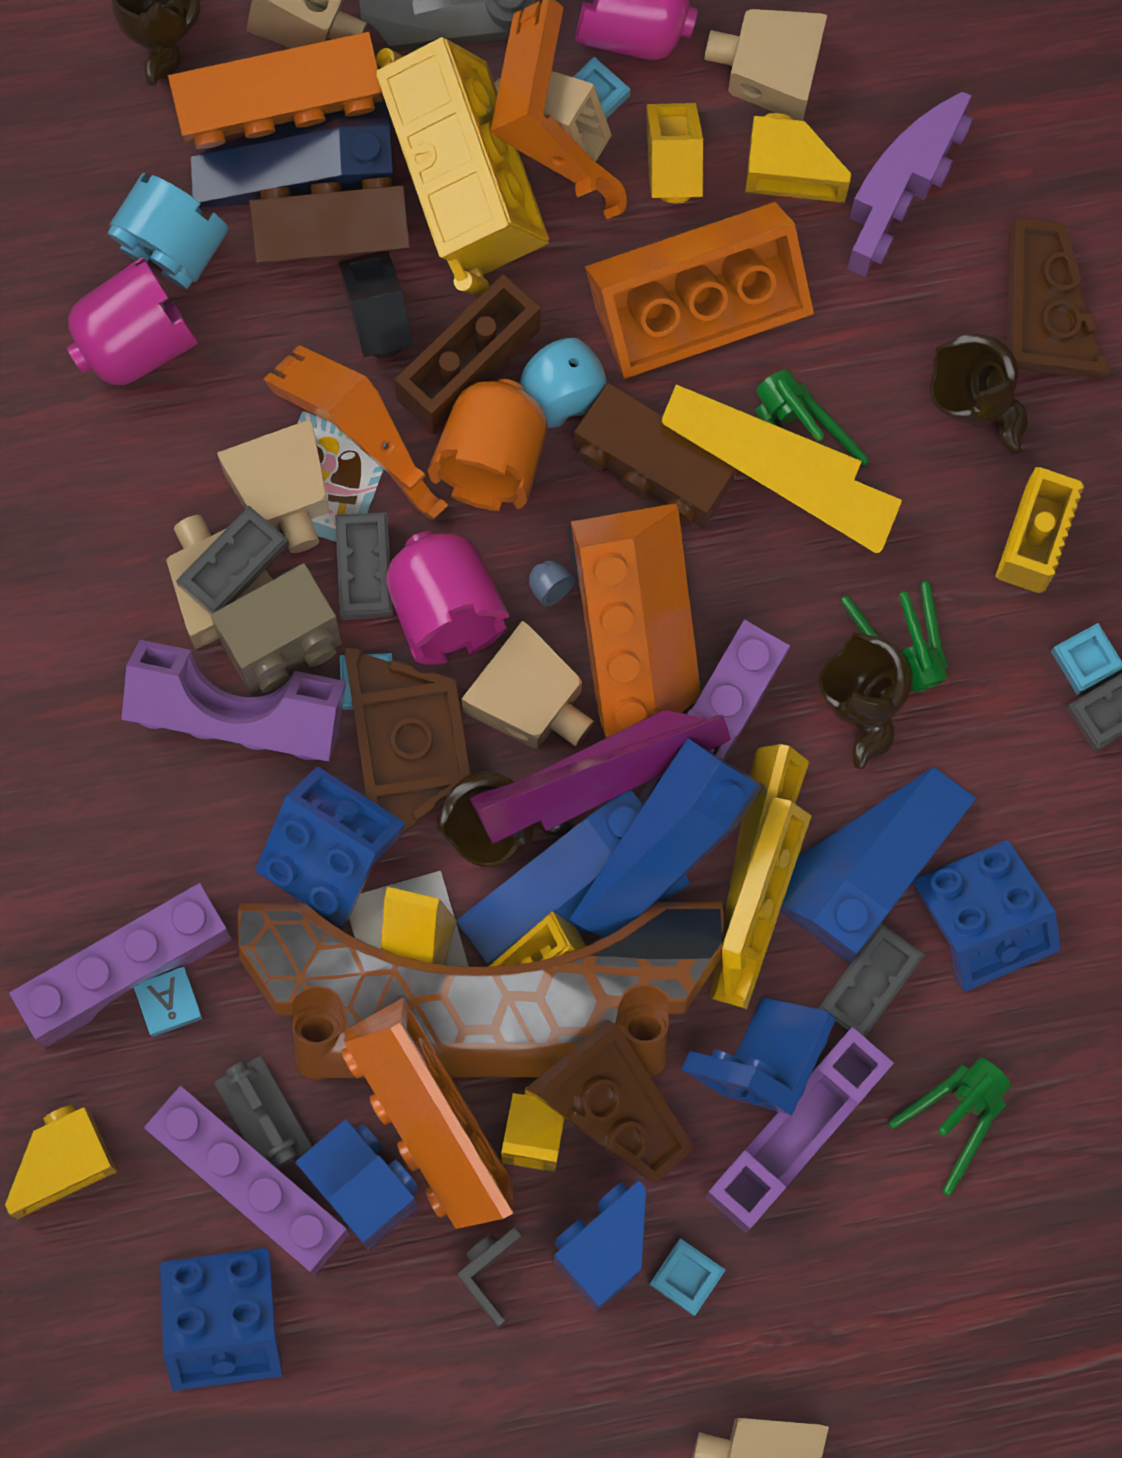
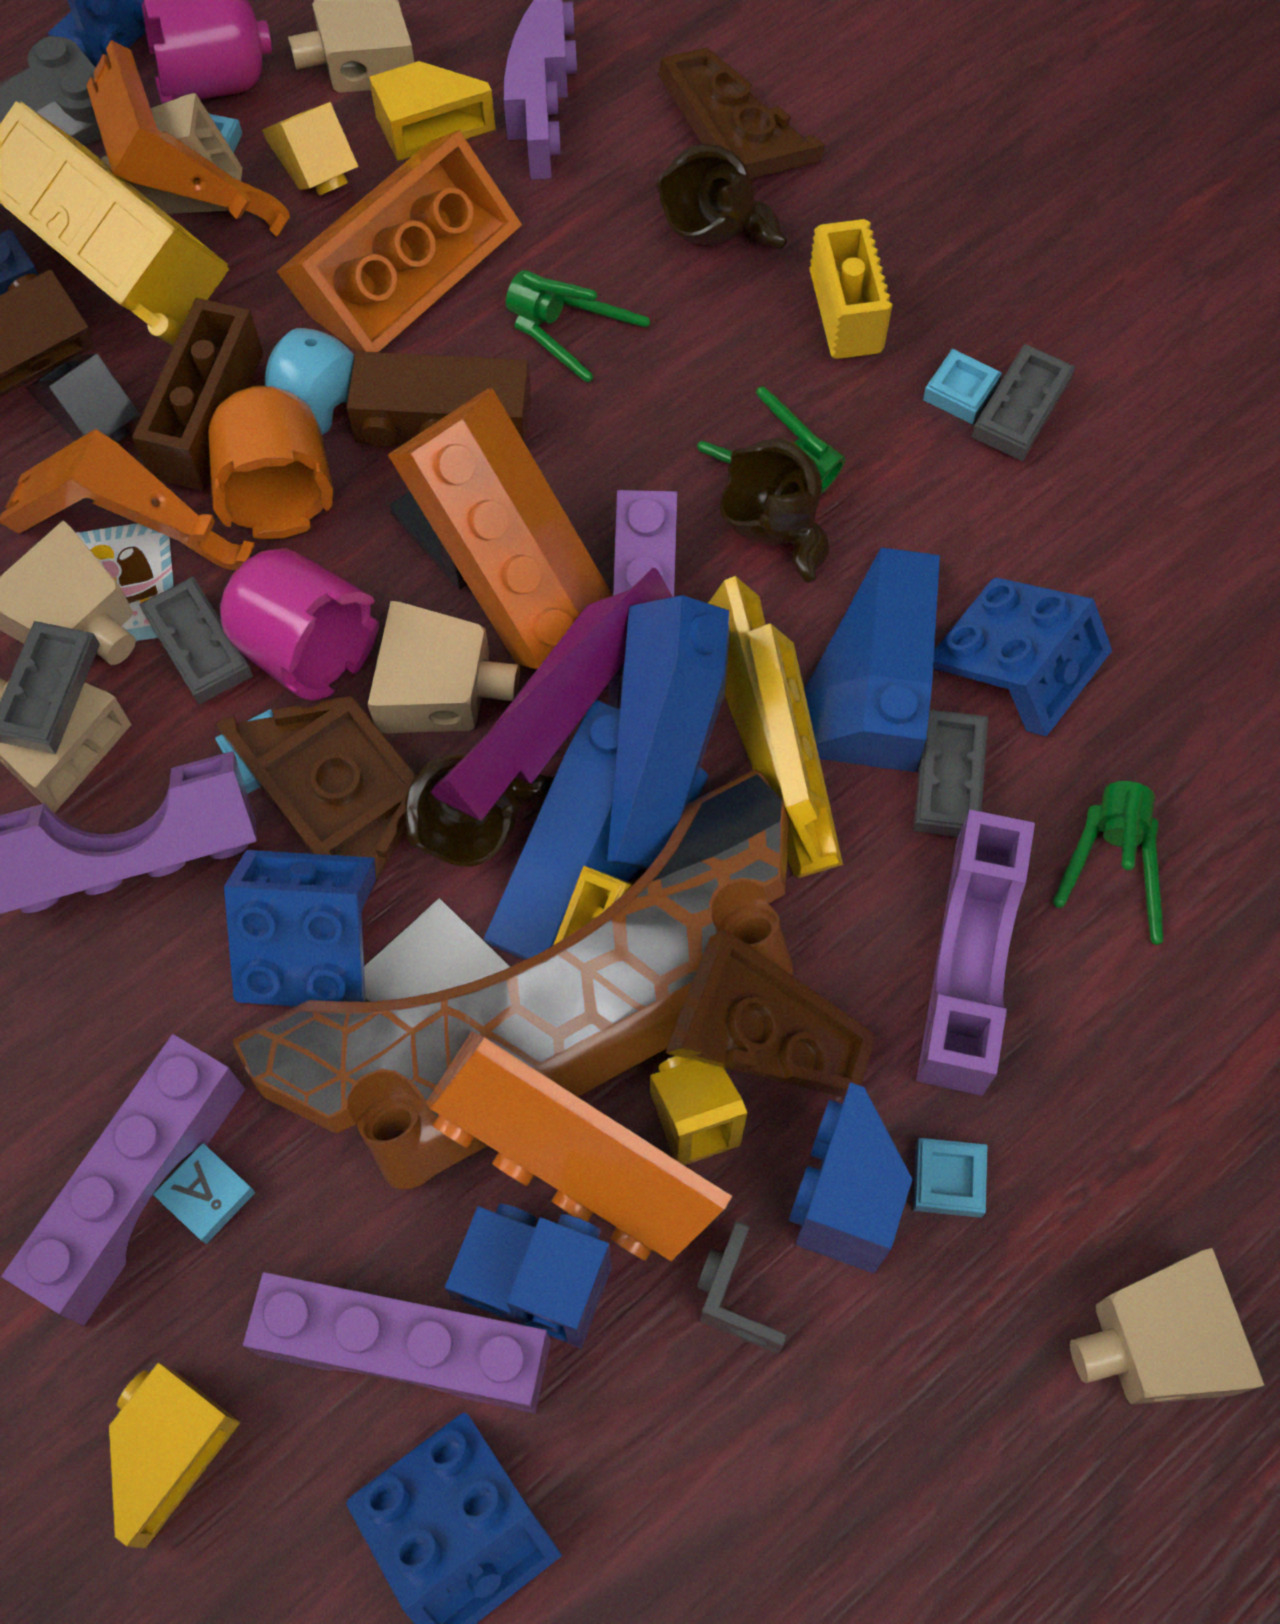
camera: 25 degrees left, 10 degrees down
(262, 1112) = (375, 1255): dark grey hinge -> none
(278, 630) = (128, 733): dark tan brick -> none
(416, 926) = (440, 946): yellow slope -> none
(550, 582) = (400, 564): sand blue hinge -> none
(772, 1057) = (902, 893): blue bracket -> none
(788, 464) = (575, 336): yellow wedge -> none

